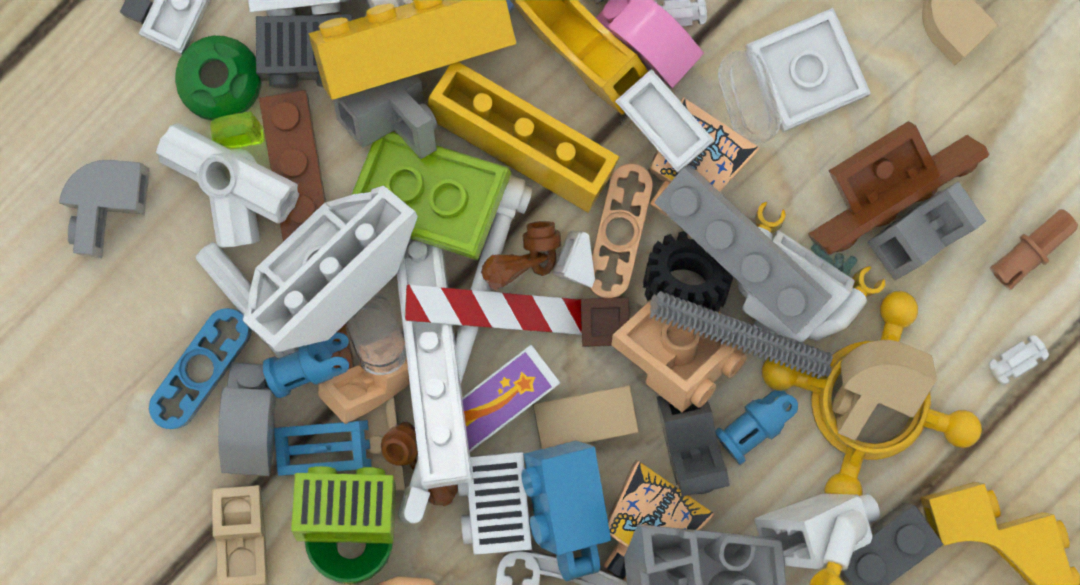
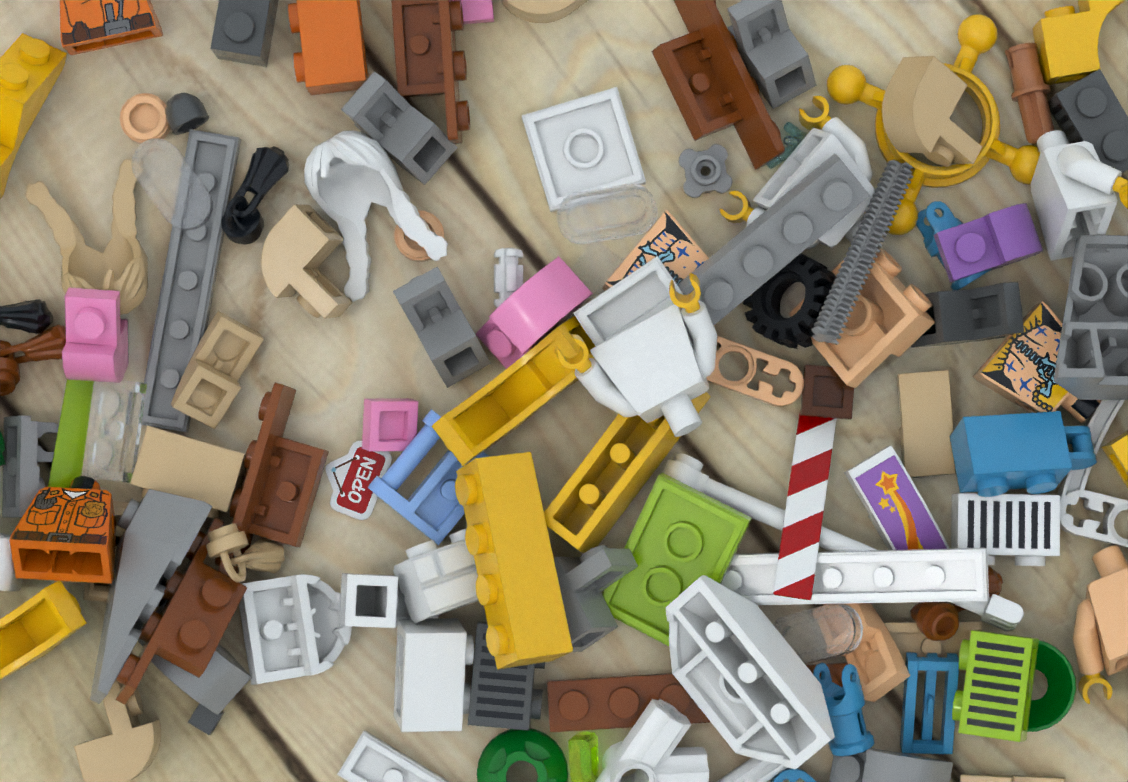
camera: 75 degrees left, 0 degrees up
(540, 236) = (733, 452): dark orange piece -> none
(576, 259) = (759, 415): white slope -> none
(610, 144) = (654, 364): none -> white torso
(764, 457) = (988, 242): none -> medium lavender brick
(788, 179) = (714, 159): none -> light grey plate
(914, 483) = (1030, 90): none -> nougat axle

